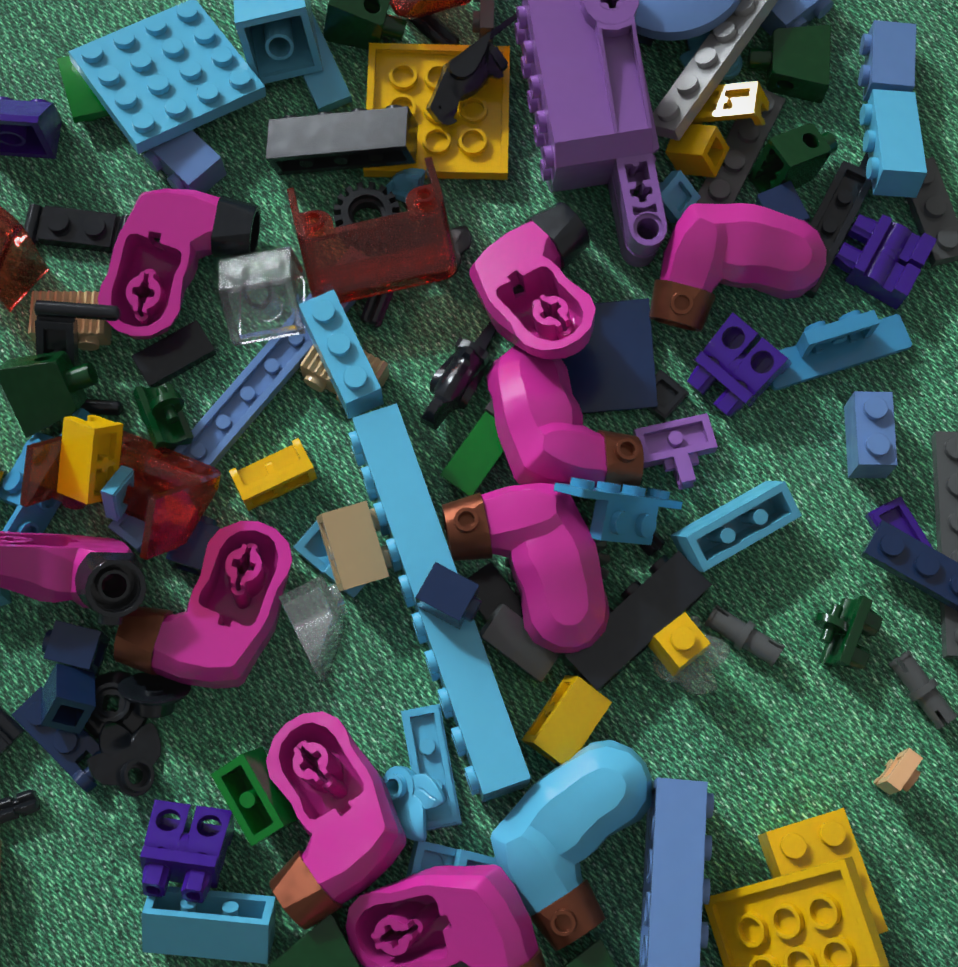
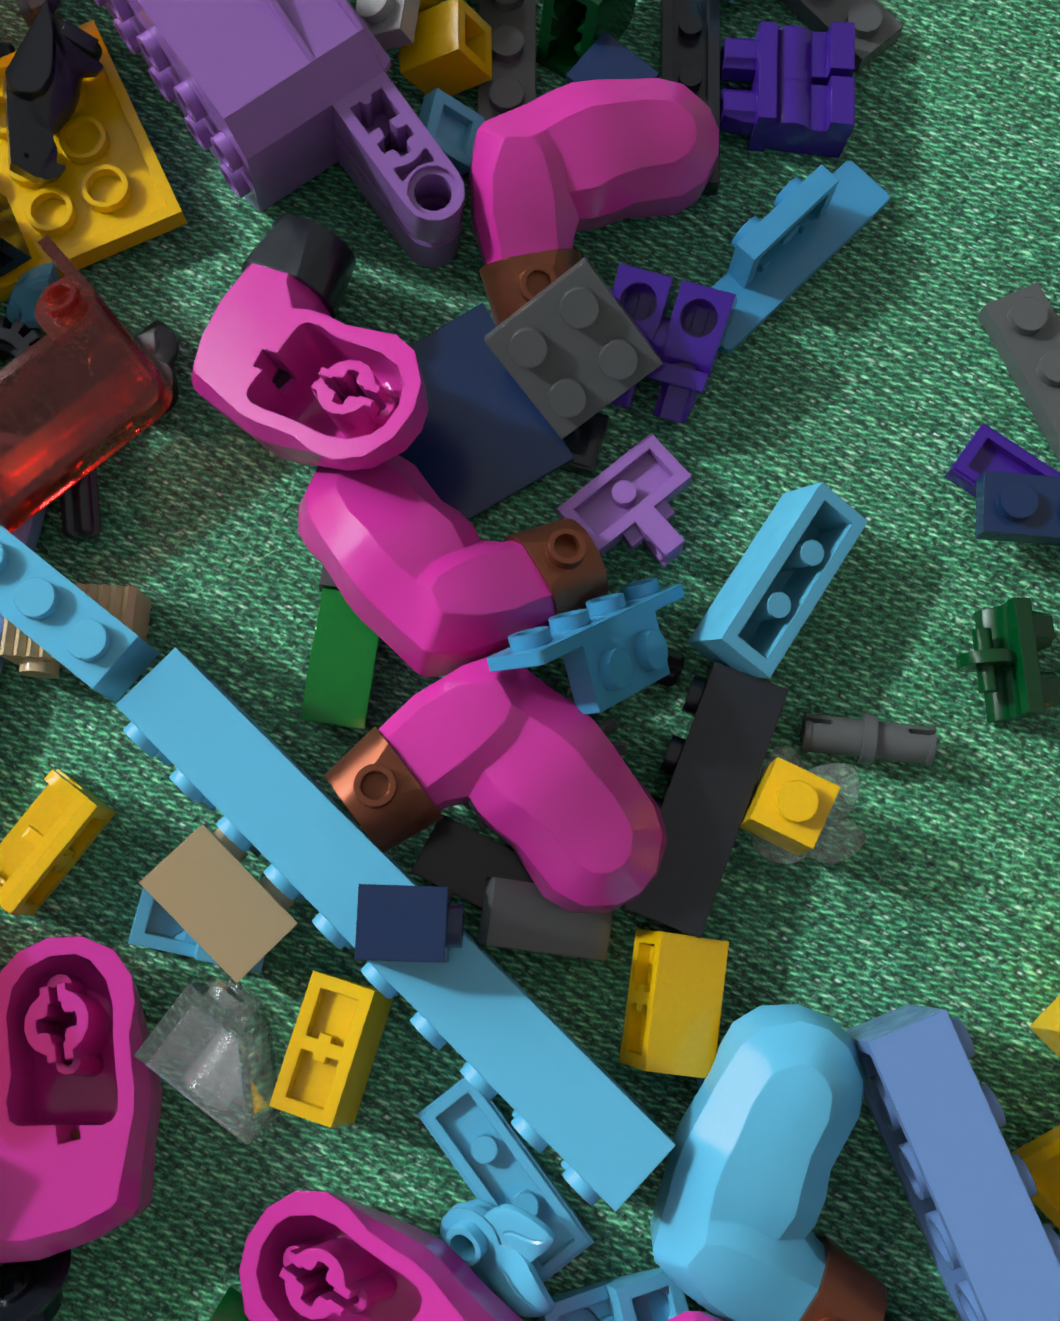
camera: 25 degrees left, 5 degrees up
(374, 653) = (331, 1050): none -> yellow hinge
(458, 377) = (256, 557): black animal -> none
(684, 346) = (573, 348): none -> dark grey plate
(870, 434) = (900, 353): medium blue brick -> none

